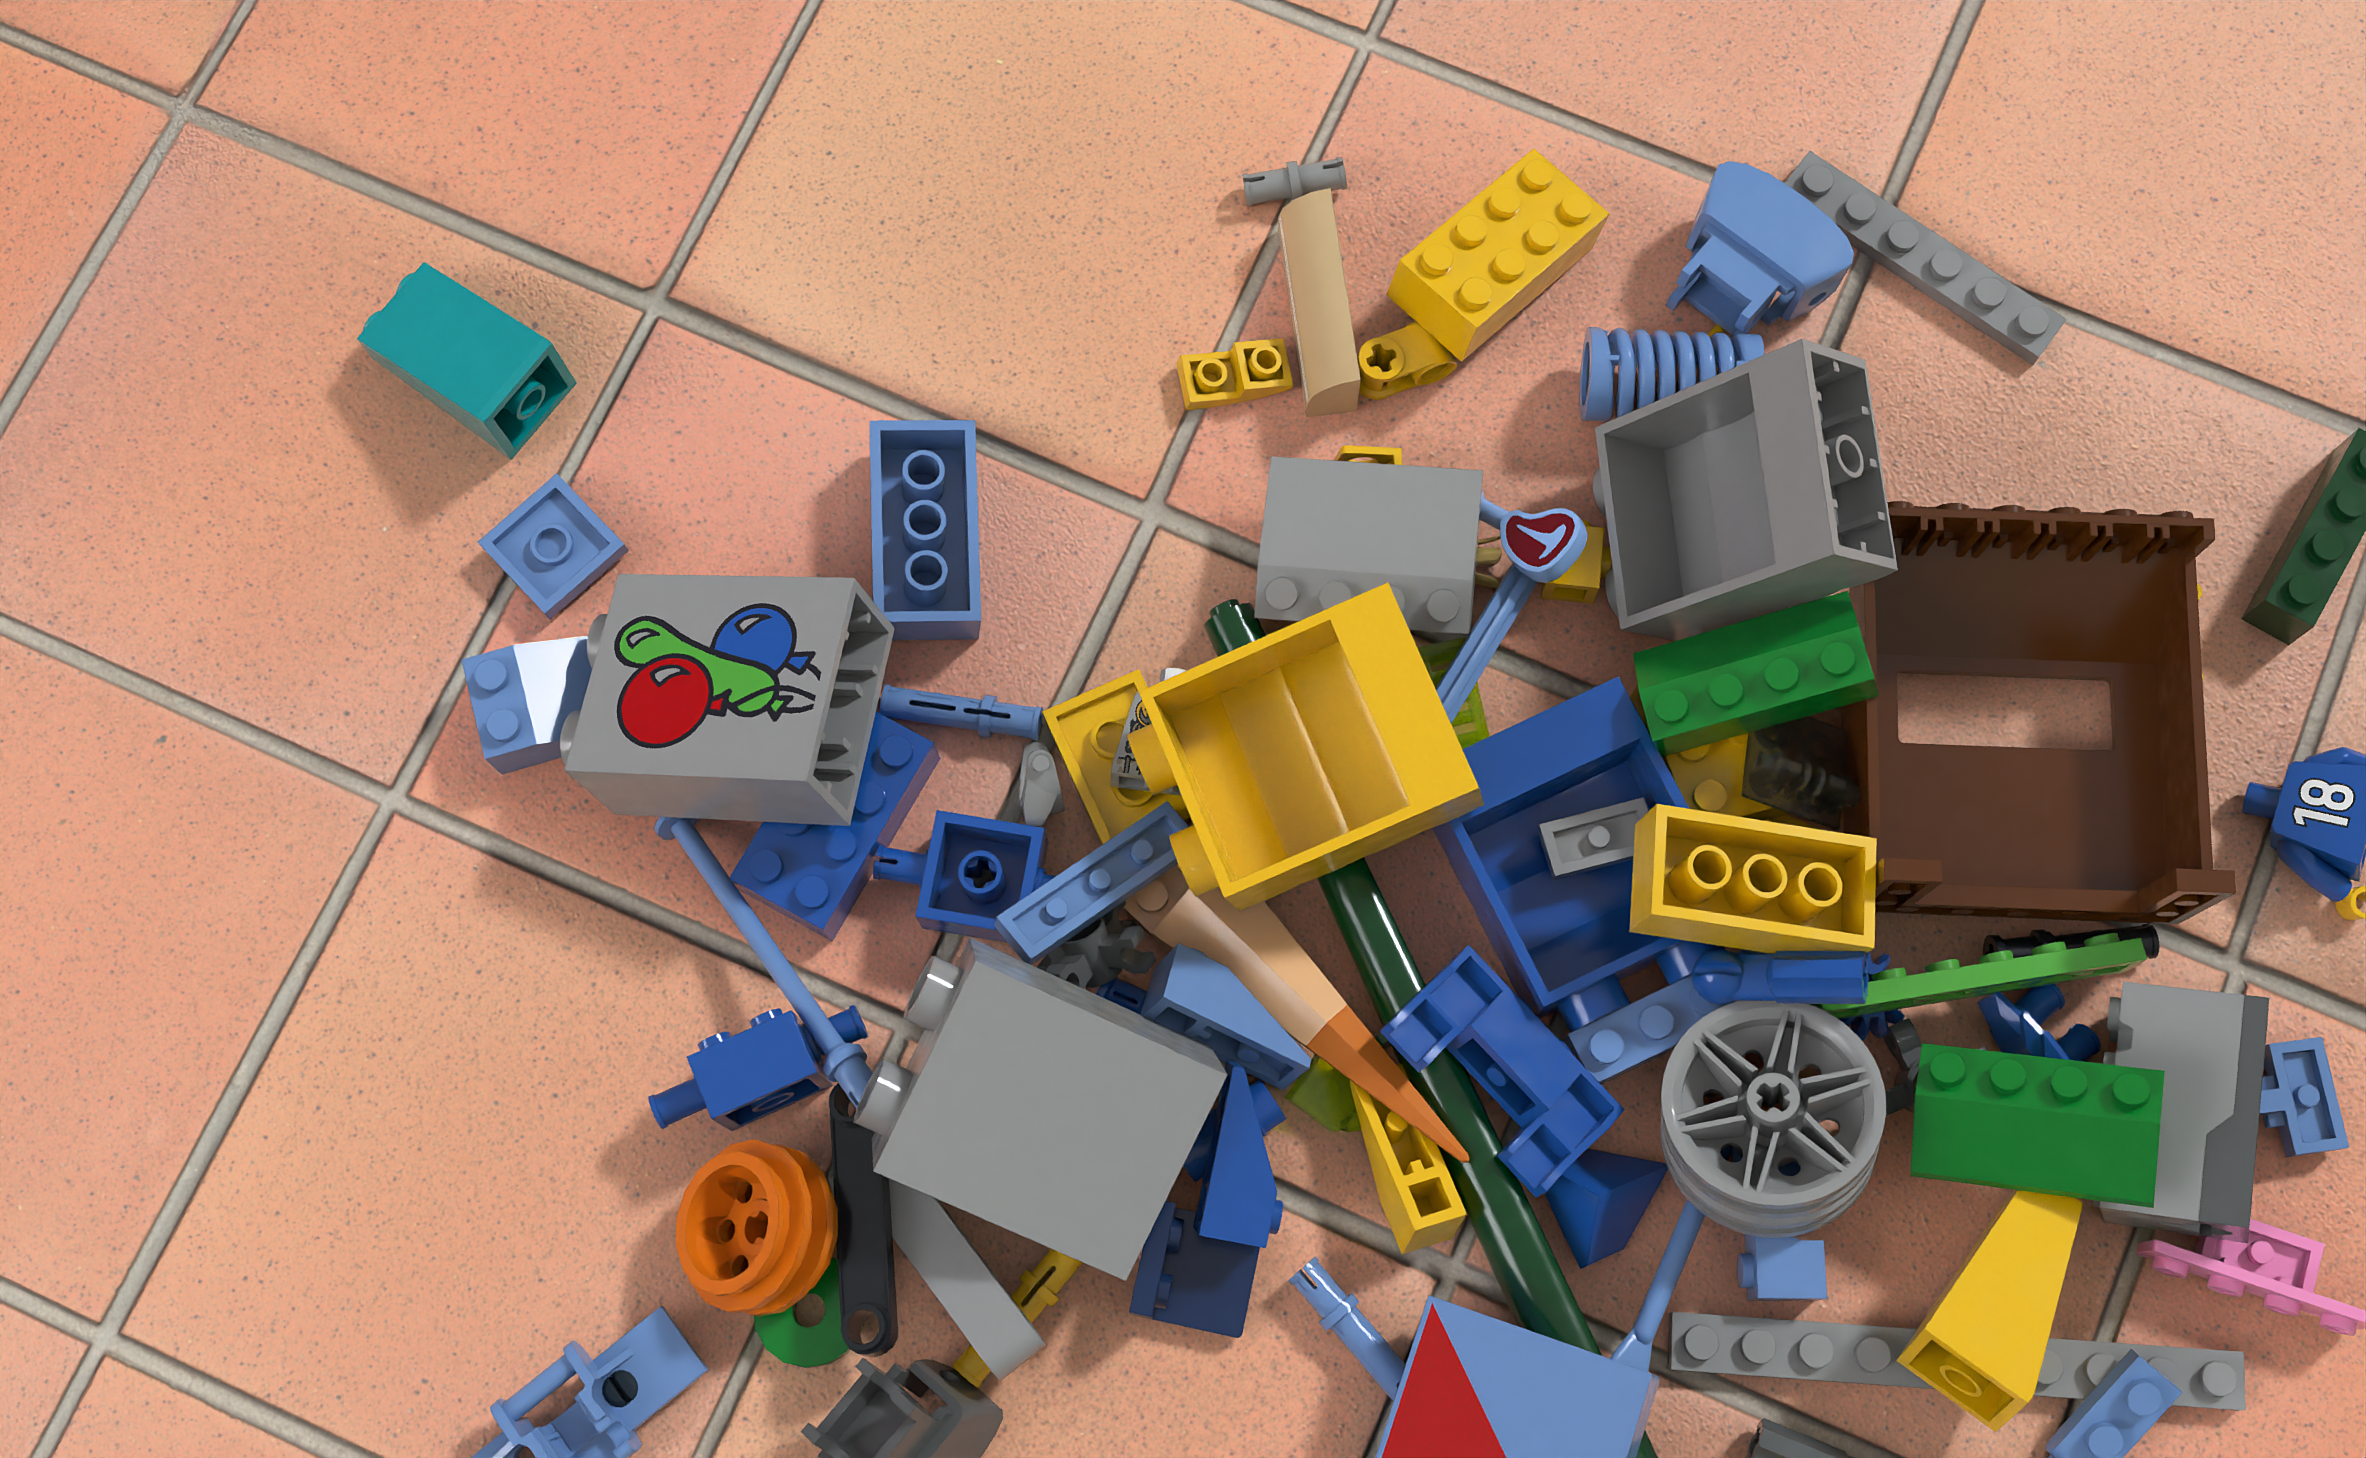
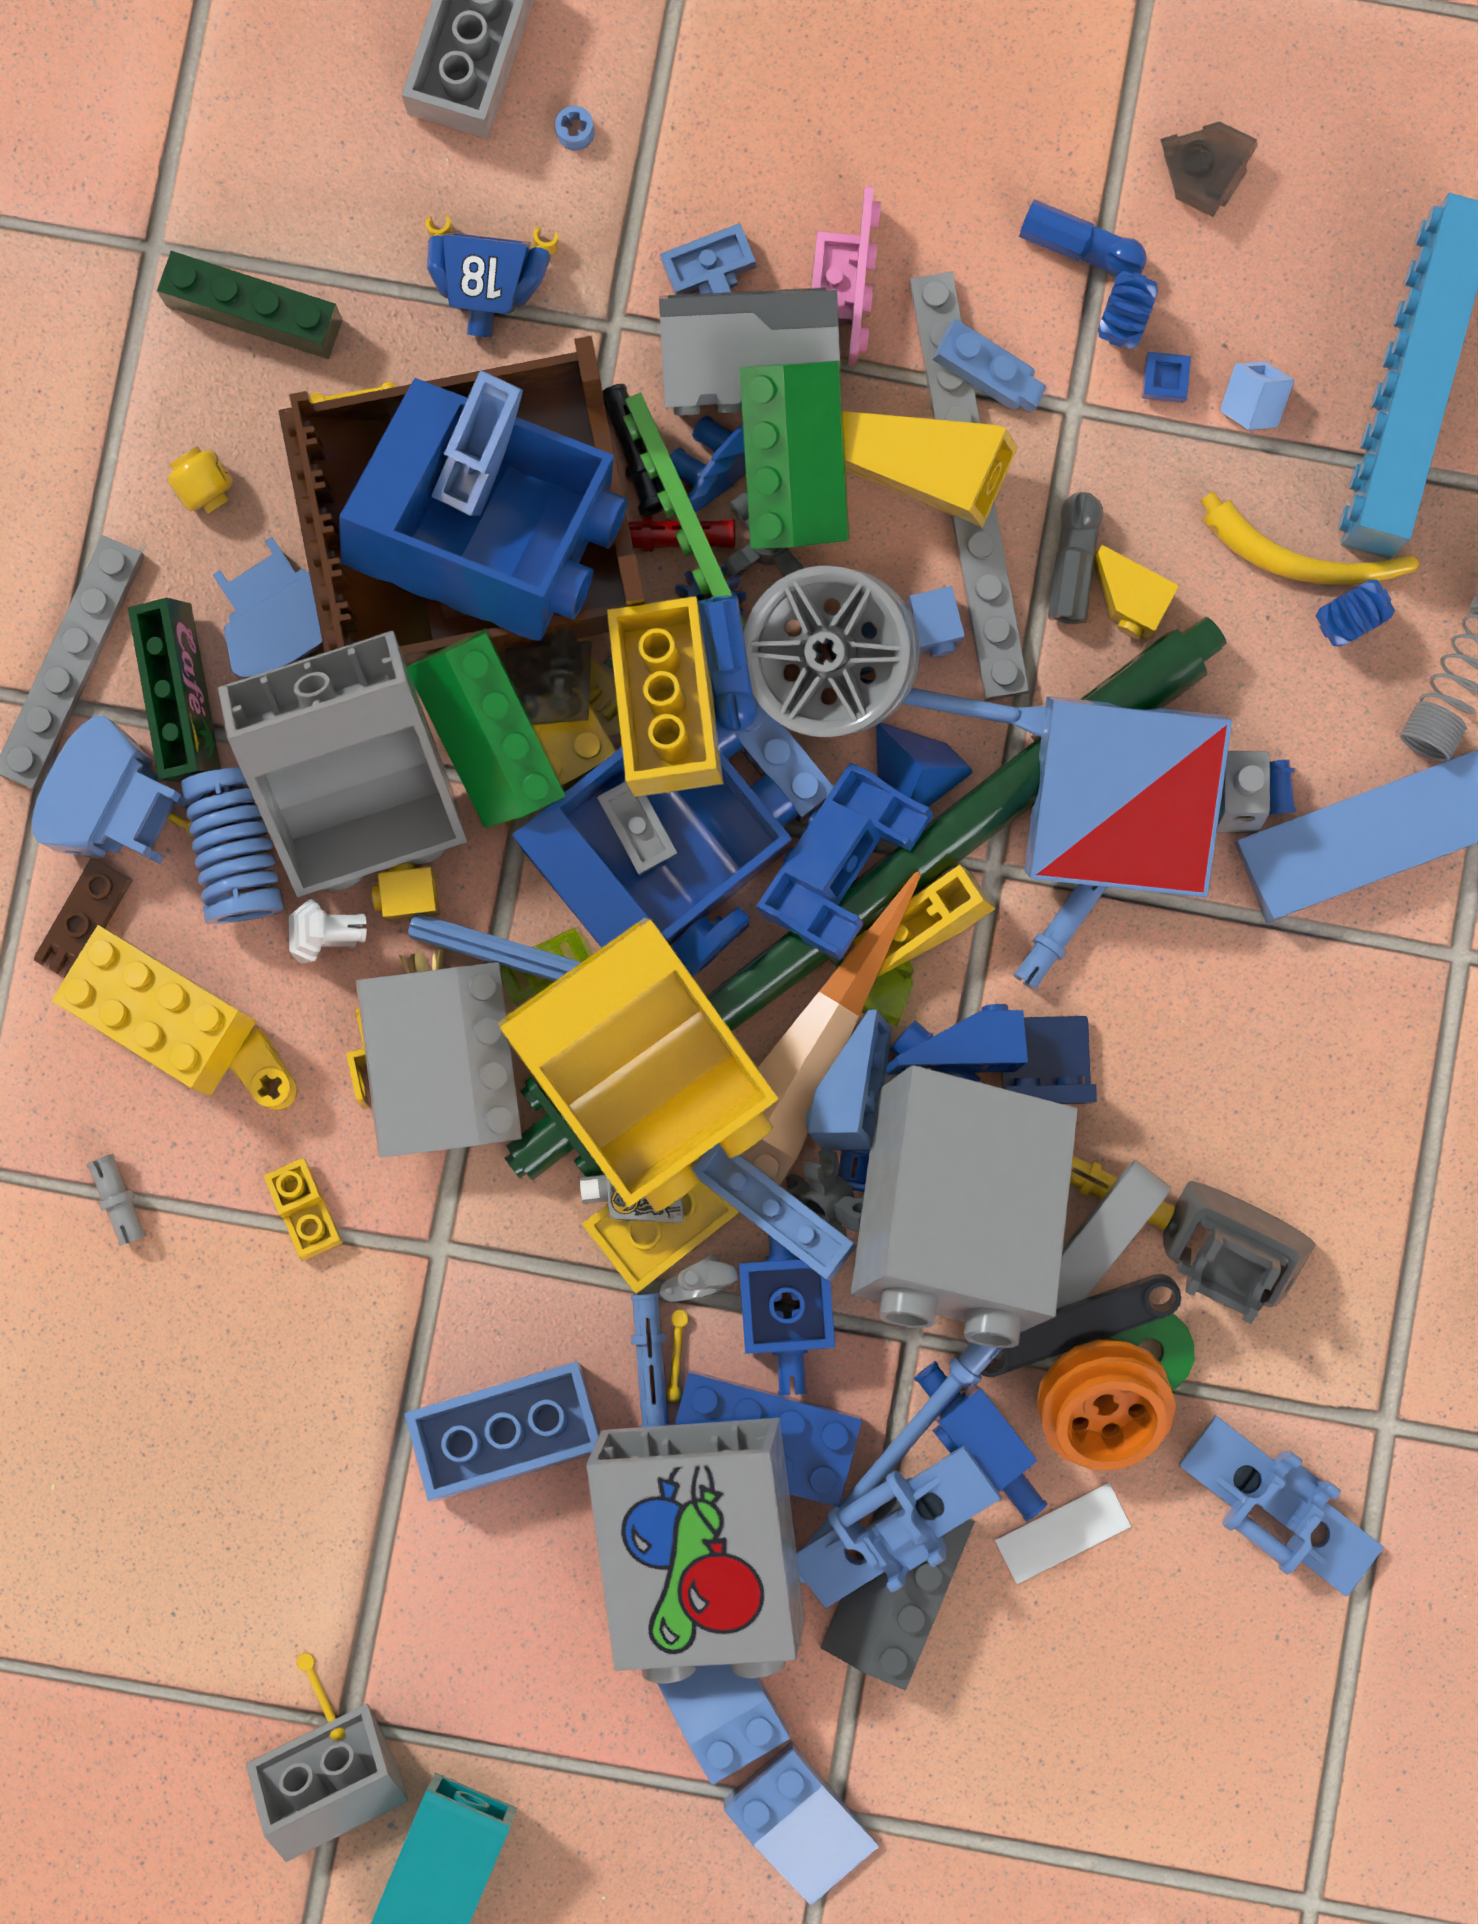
camera: 110 degrees left, 10 degrees up
(392, 755) = (799, 1823): none -> slope
(553, 546) = (588, 1744): medium blue plate -> none
(599, 261) = (325, 1786): none -> light grey slope
(623, 932) = (887, 1630): none -> dark grey slope
(625, 1149) = (1062, 1533): none -> white sticker
(669, 943) = (904, 1538): none -> medium blue piece
(735, 275) = (305, 1663): none -> yellow hinge
(1000, 759) = (679, 1319): none -> yellow hinge
(1319, 305) = (229, 1151): tan brick -> none
(1436, 882) = (707, 939): none -> blue plate
(1538, 543) = (406, 923): light blue piece -> none
(1551, 443) = (314, 929): none -> white connector
(1633, 220) = (88, 905): none -> reddish brown hinge
(1900, 351) = (174, 689): none -> dark green brick
(1939, 467) = (272, 617): none -> medium blue piece
(1957, 941) = (660, 534): none -> red pin
(2029, 717) = (511, 561): none -> blue brick
(2113, 727) = (478, 444): none -> medium blue slope
(2115, 436) = (200, 480): none -> yellow head

